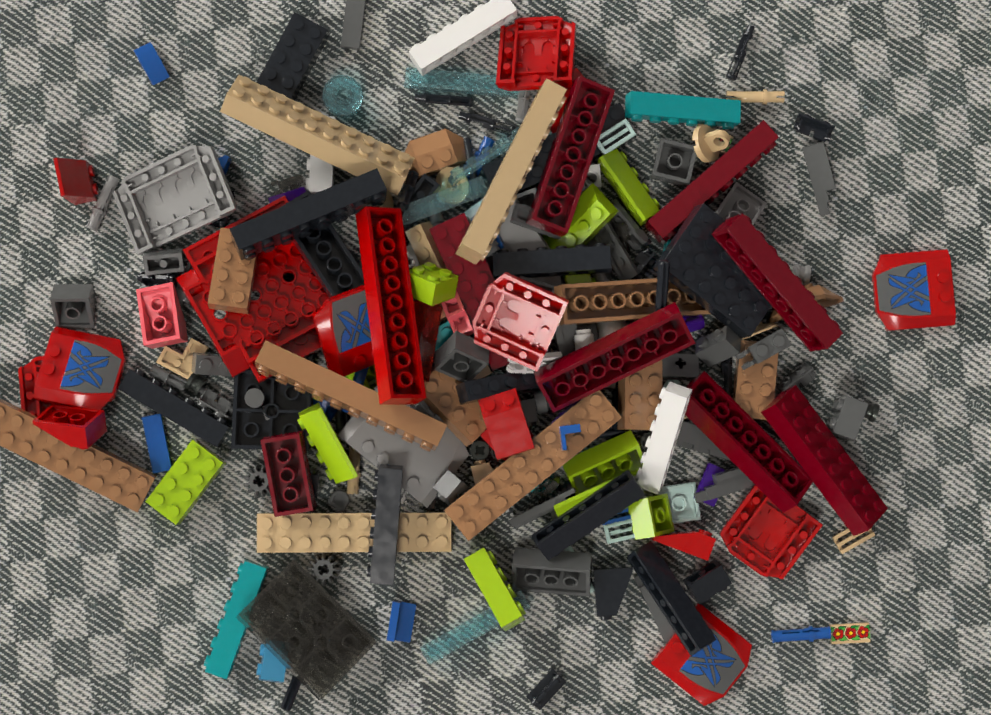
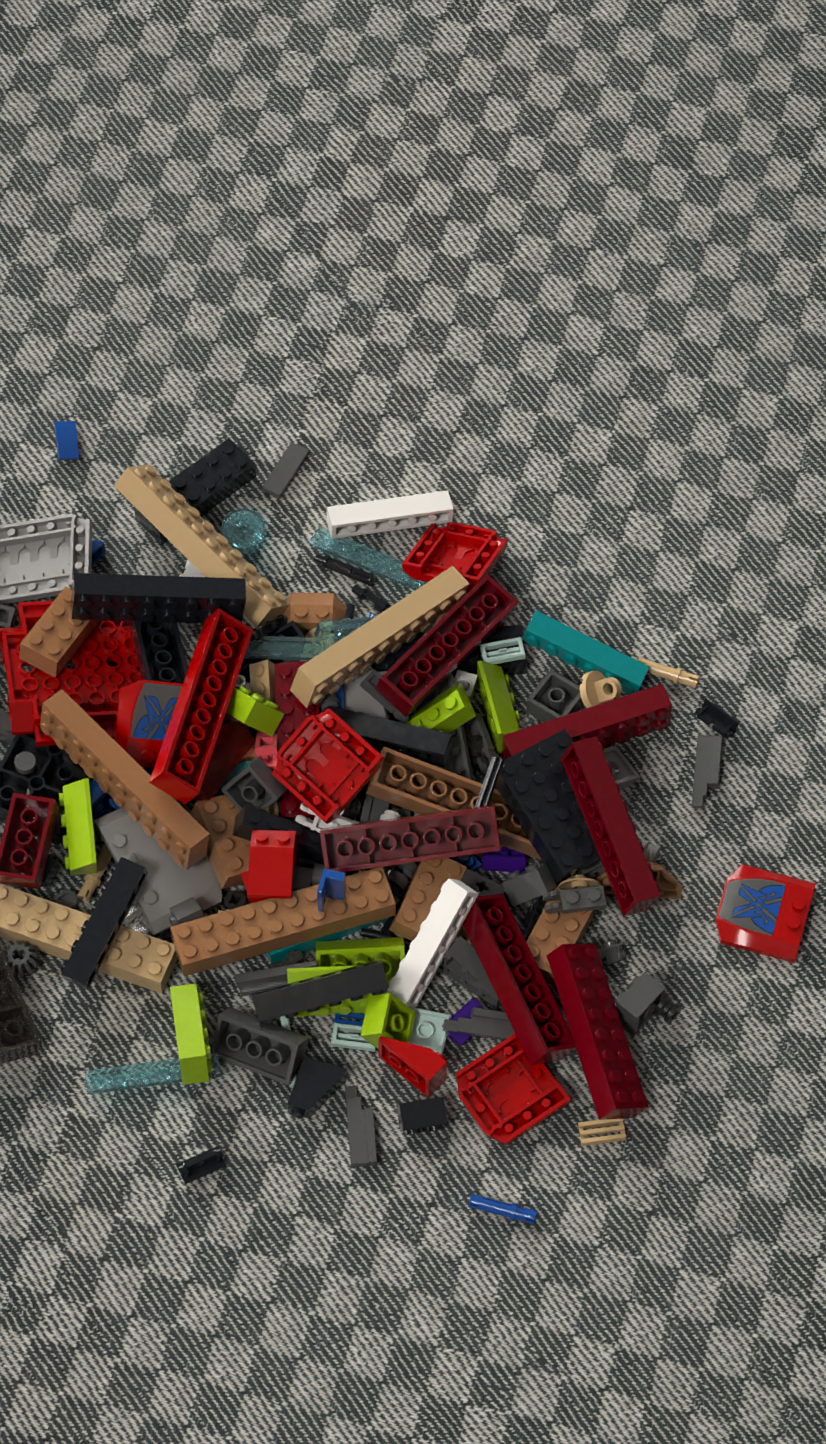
camera: 20 degrees right, 25 degrees down
(401, 621) = (75, 1040): blue panel -> none
(671, 598) = (374, 1111): black brick -> none
(710, 671) = (386, 1193): wedge -> none
(740, 53) = (668, 629): black piece -> none
(850, 633) = (558, 1228): tile -> none

